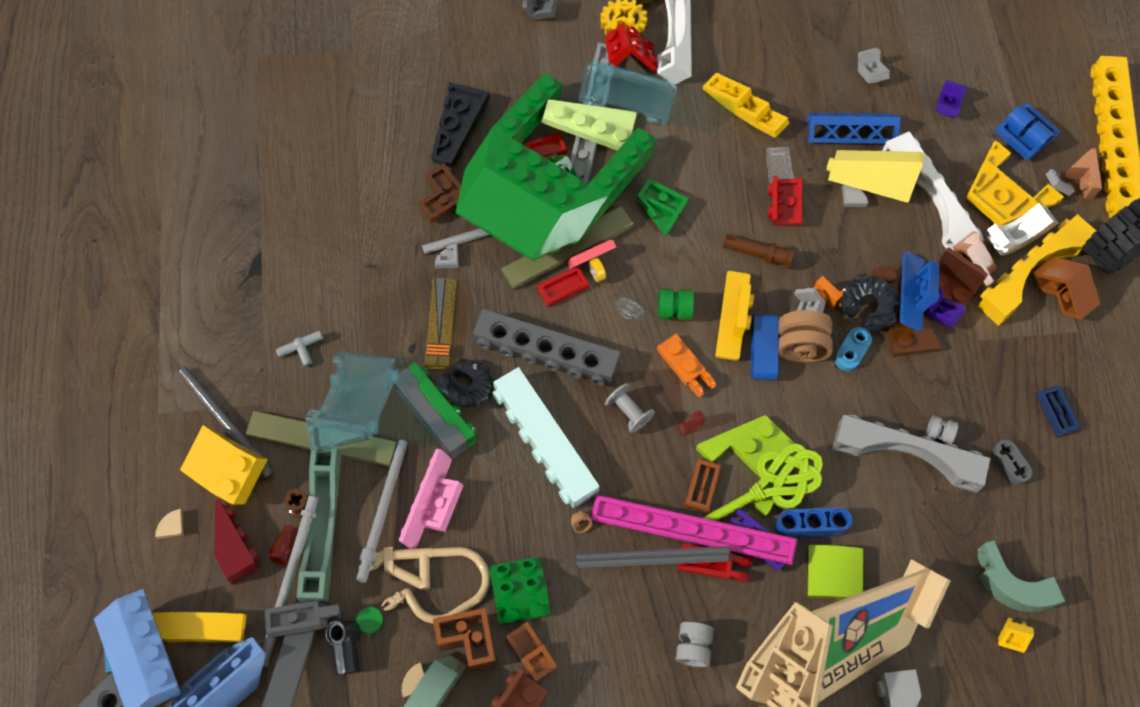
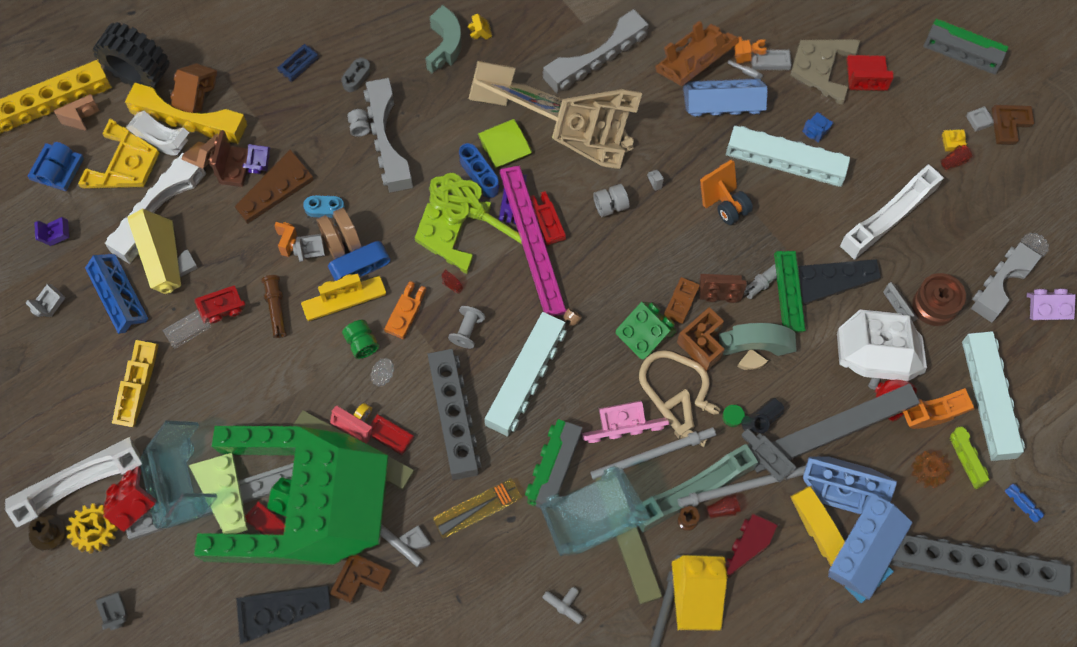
camera: 120 degrees left, 0 degrees up
(171, 525) = (765, 603): tan tile -> none
(471, 396) = (523, 442): black piece -> none
(653, 557) = (569, 254): dark grey axle -> none
(662, 204) = (272, 397): green wing -> none
(697, 505) = (496, 260): dark orange tile -> none
(878, 289) = (276, 193): black piece -> none
(918, 289) = (251, 177): blue bracket -> none
(1058, 184) = (98, 127): light grey tile -> none

